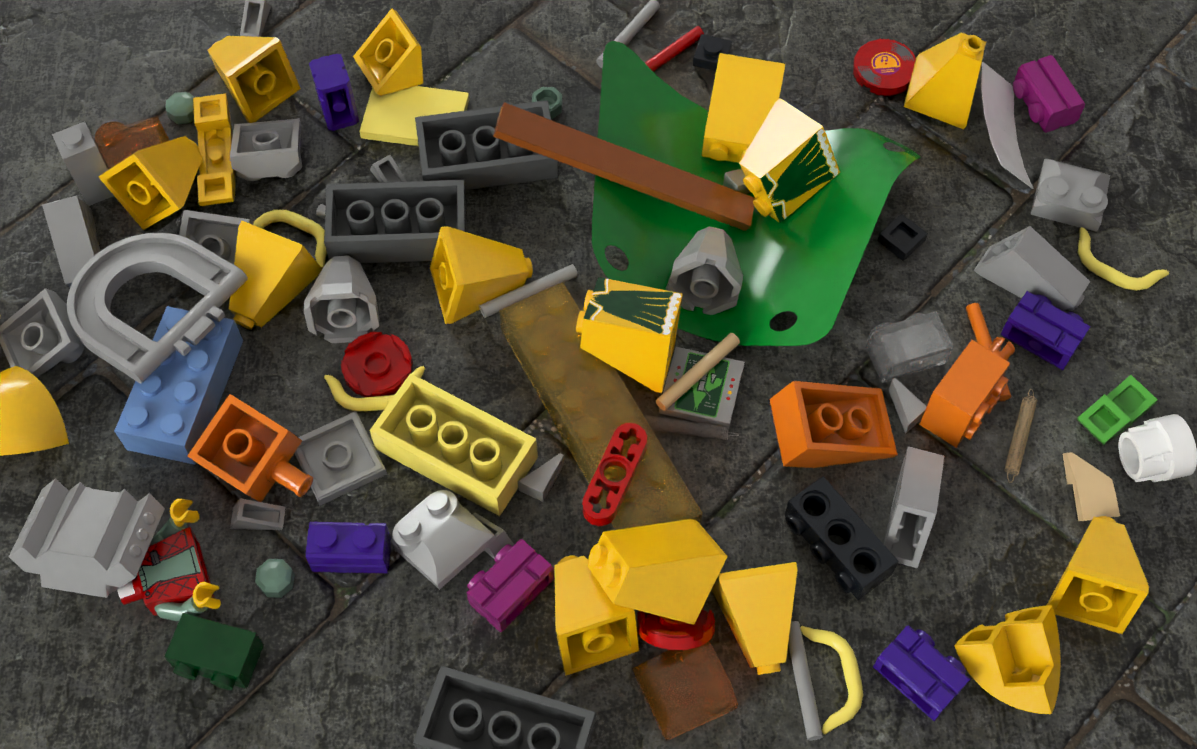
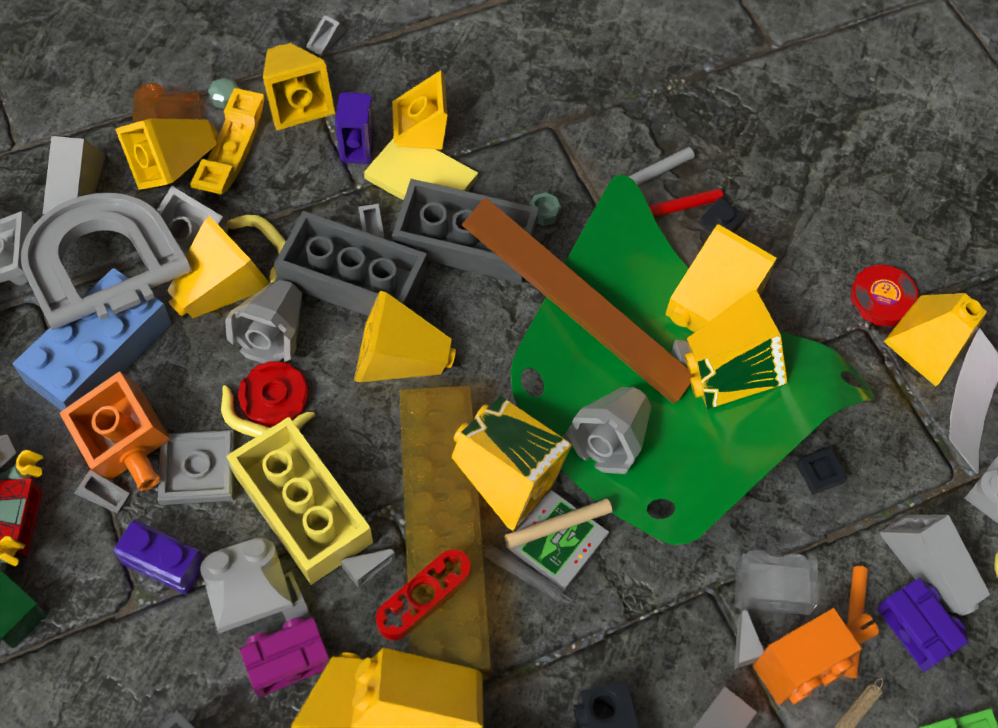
camera: 20 degrees right, 0 degrees up
(83, 161) = (110, 107): light grey slope -> none
(266, 149) = (274, 157): light grey slope -> none
(275, 578) = (86, 556): sand green tile -> none
(562, 275) = (442, 380): light grey bar -> none
(831, 424) = (663, 631): orange slope -> none

